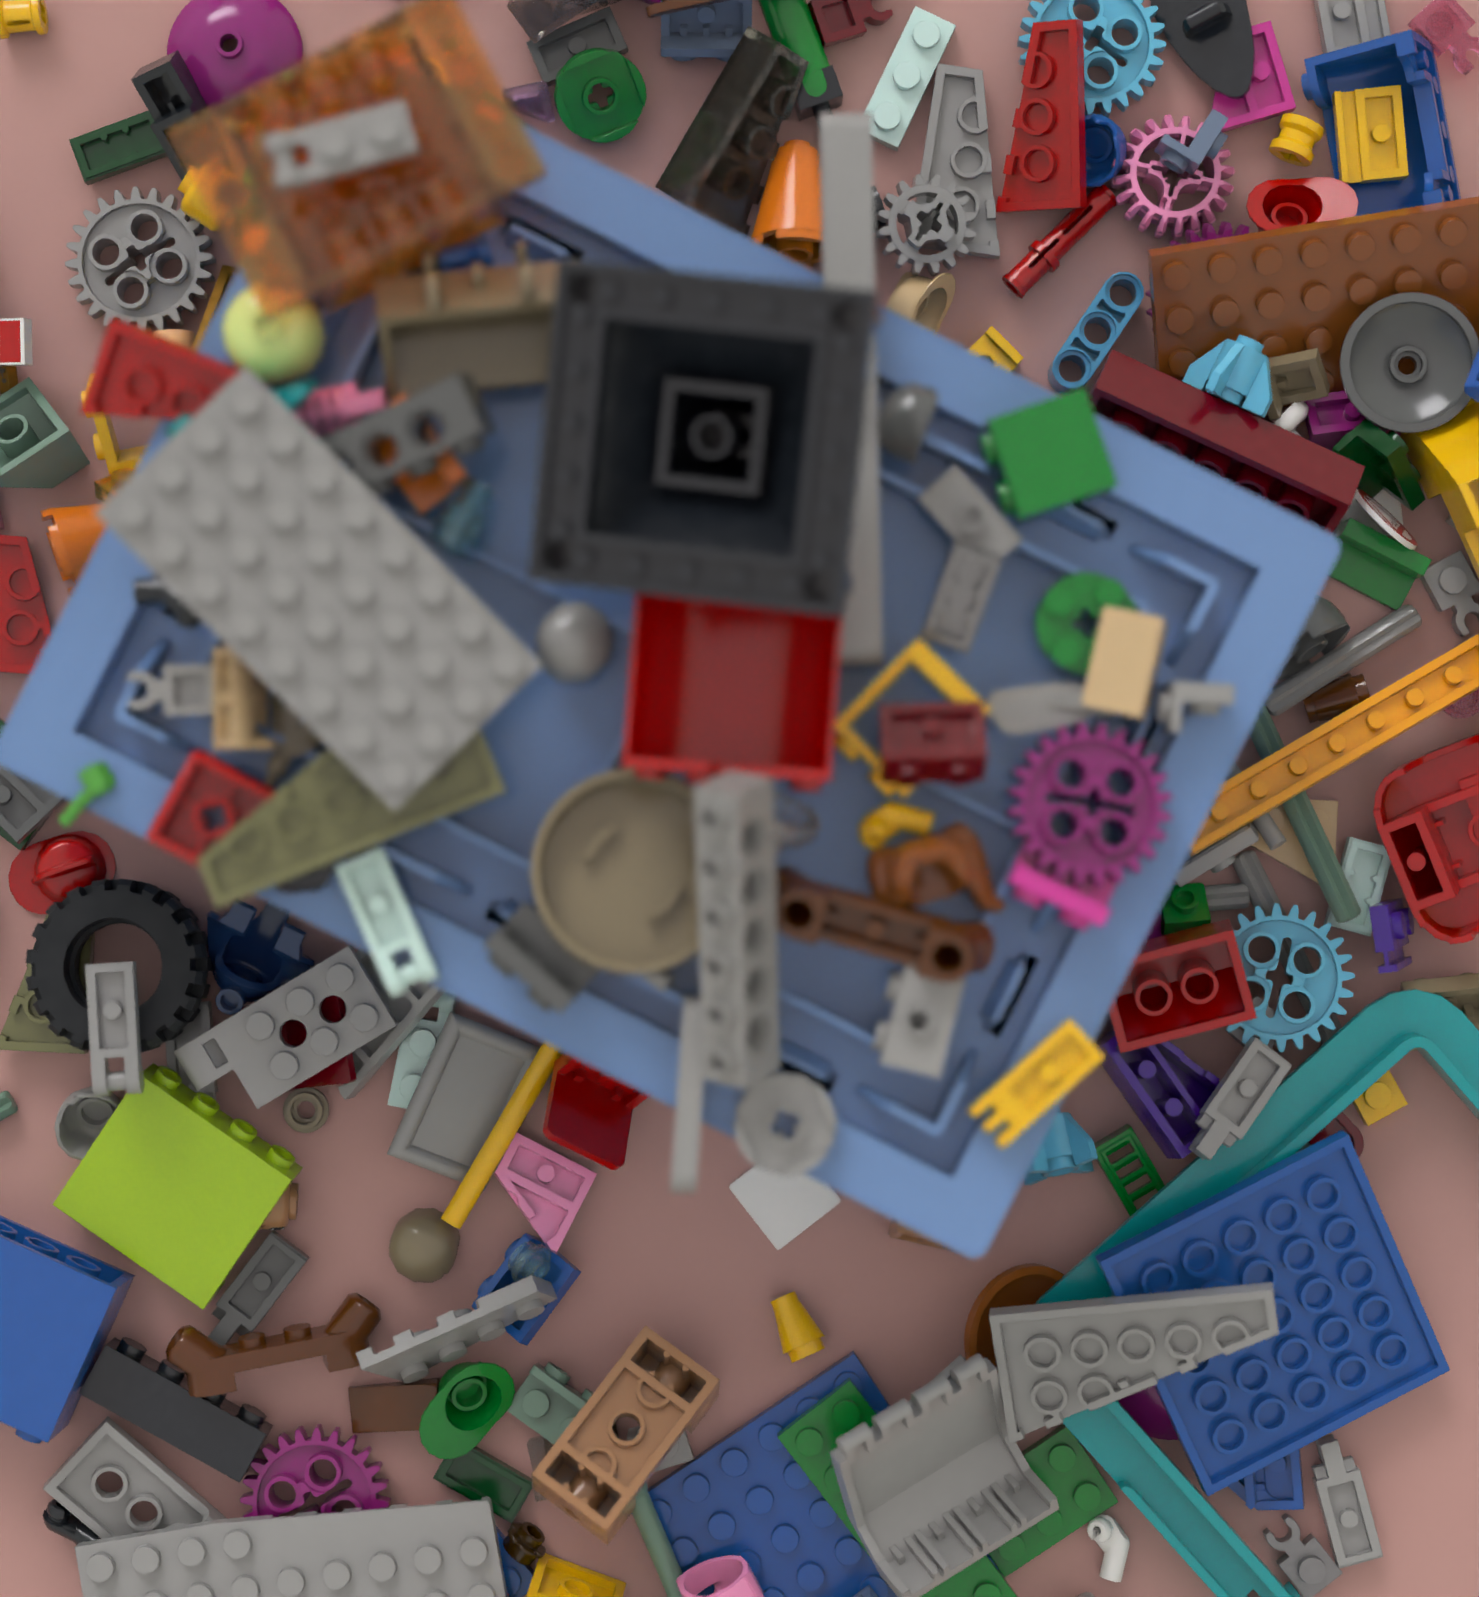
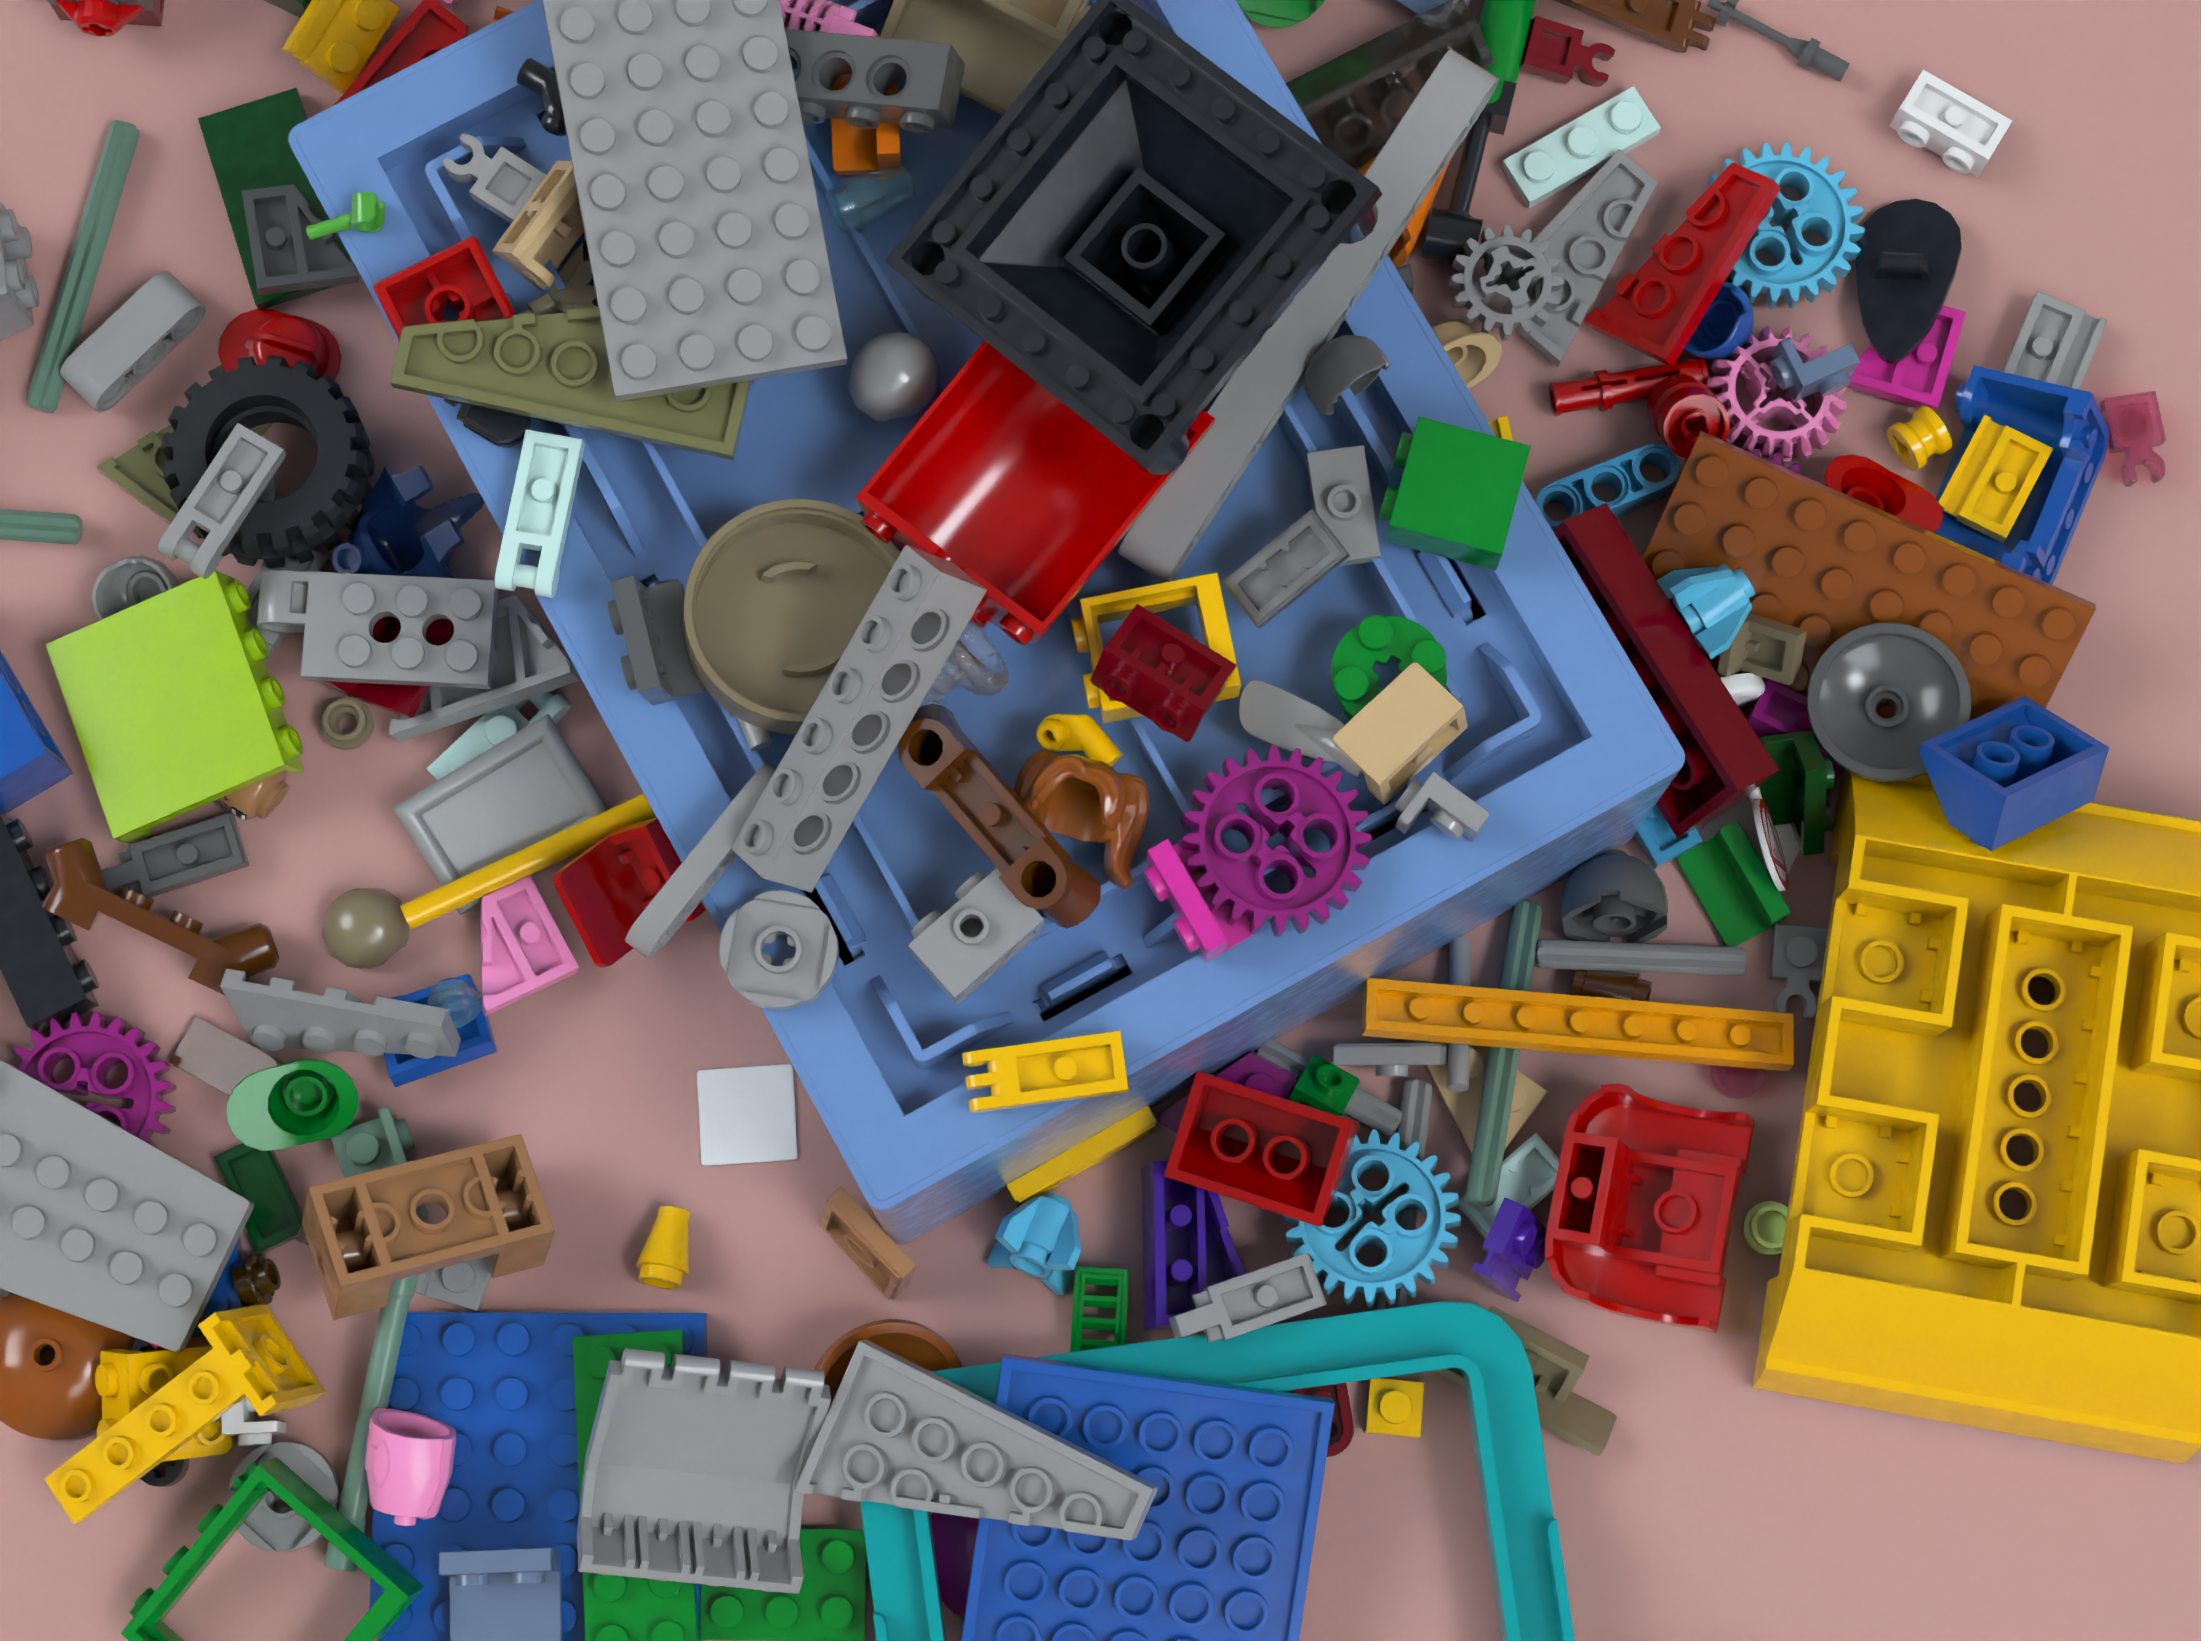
camera: 40 degrees right, 10 degrees down
(1121, 237) = (1683, 408): none -> red wheel

